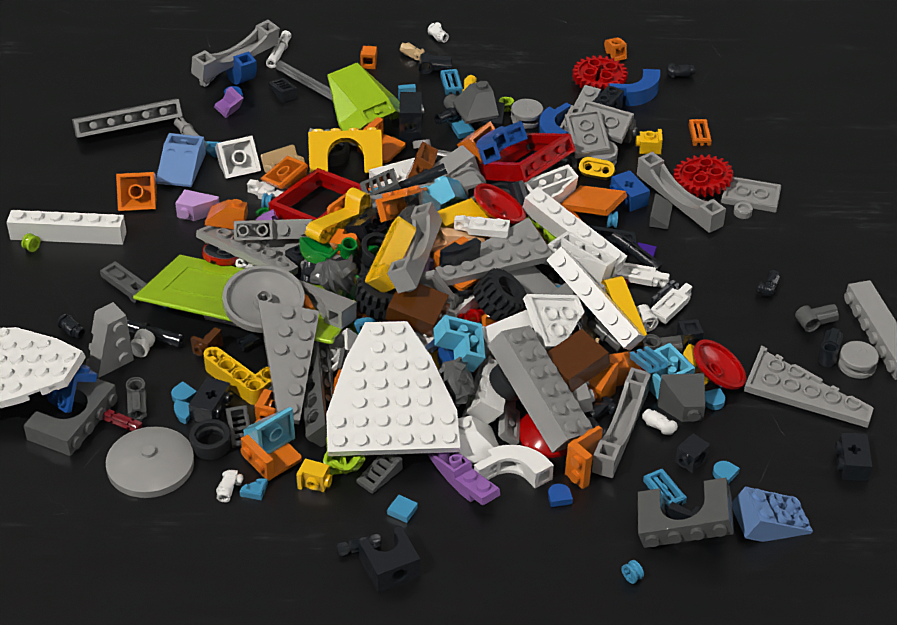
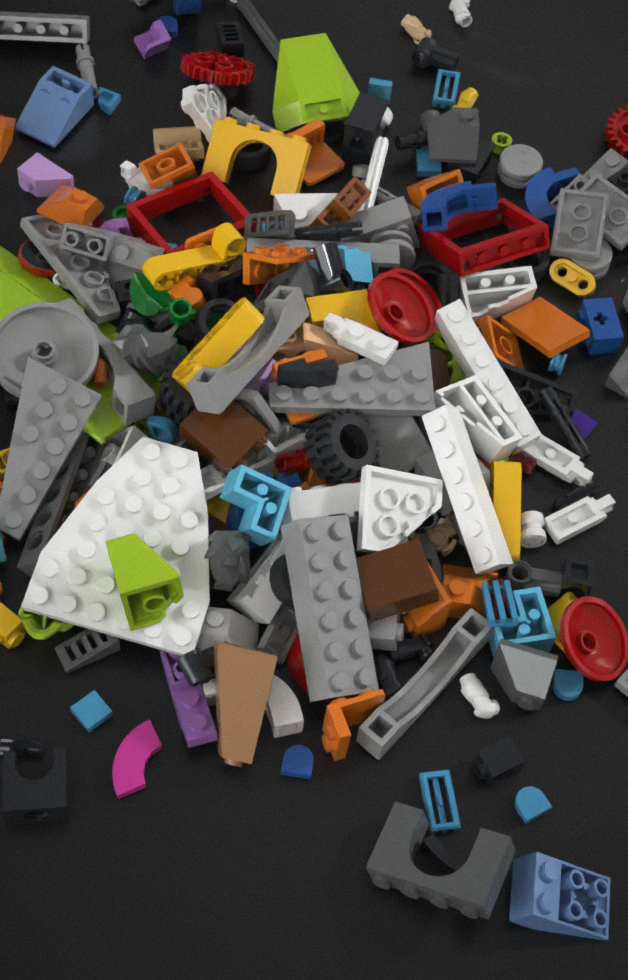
camera: 15 degrees right, 15 degrees up
(238, 157) = (126, 124): white slope -> none
(284, 106) = (218, 68): none -> red gear
(295, 133) = (204, 105): none -> white plate
(369, 54) = (360, 18): orange leg -> none
(409, 404) = (143, 581): none -> lime slope
(430, 133) = (375, 170): none -> white axle
(441, 190) = (333, 274): none -> black piece
(446, 527) = (132, 758): none -> dark pink tile
(471, 449) = (197, 665): none -> black piece
(506, 460) = (242, 692): none -> medium nougat slope
(632, 571) = (336, 918): dark azure bush -> none

